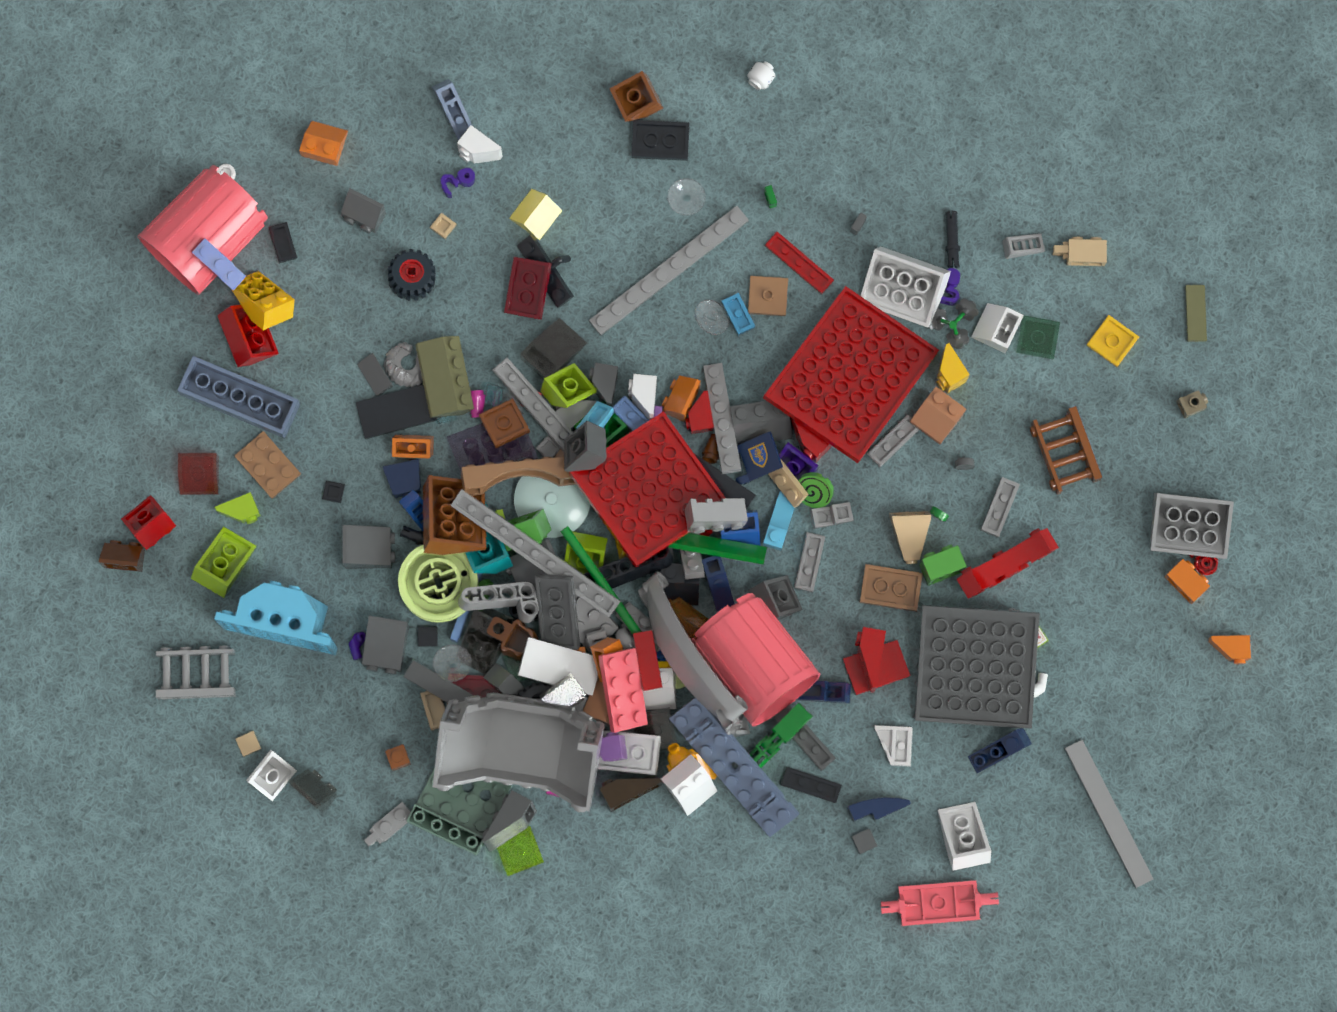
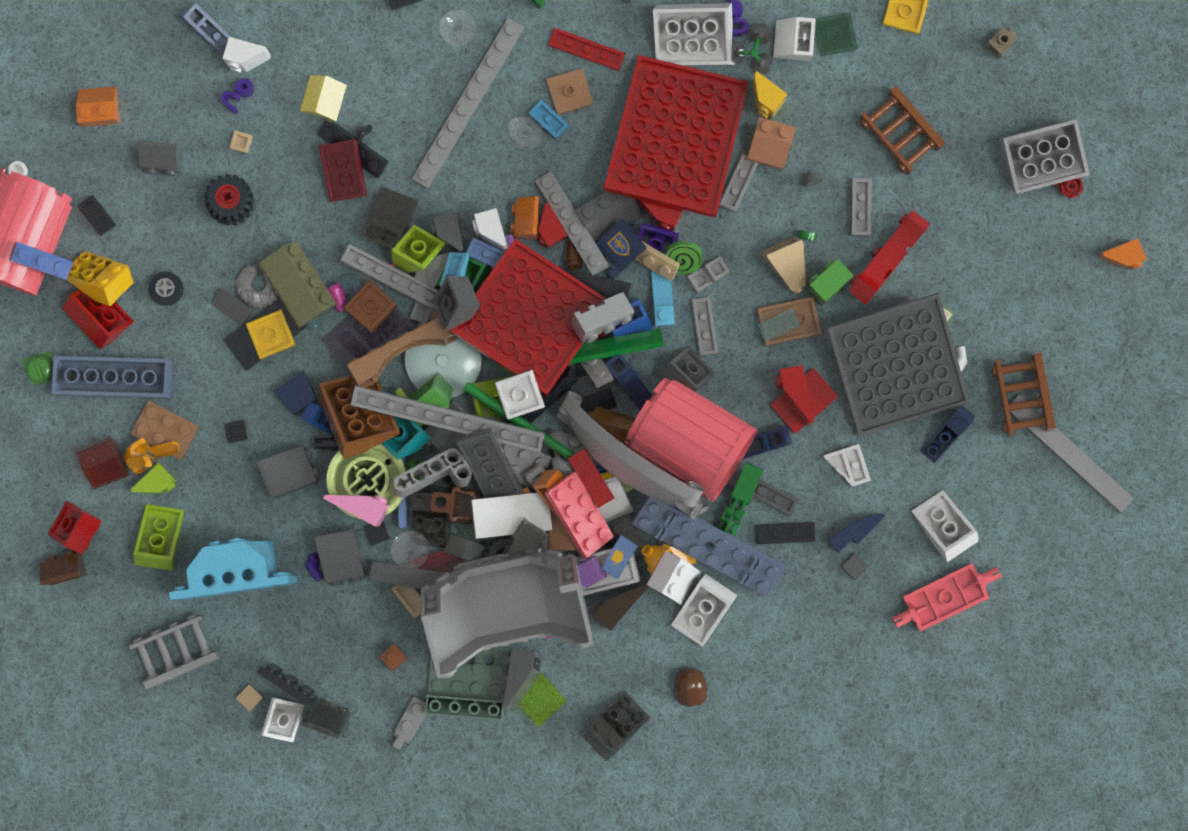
camera: 15 degrees left, 5 degrees up
(174, 362) = (39, 367): none -> bright green piece
(233, 477) = (140, 447): none -> light orange piece
(290, 741) = (287, 683): none -> black plate
(317, 328) = (161, 284): none -> black wheel
(401, 414) = (270, 334): none -> yellow tile
(412, 446) = (293, 361): orange brick -> none
(426, 603) = (365, 507): none -> bright pink slope
(579, 902) = (615, 725): none -> clear smoke slope
(611, 556) = (520, 394): none -> white tile
(645, 744) = (619, 557): none -> medium blue tile
(664, 894) = (690, 687): none -> reddish brown hair
(705, 826) = (704, 610): none -> white slope
(879, 587) = (778, 325): none -> clear light blue tile
(1100, 754) = (1039, 383): none -> dark orange fence
(1187, 581) = (1060, 209): orange brick -> none

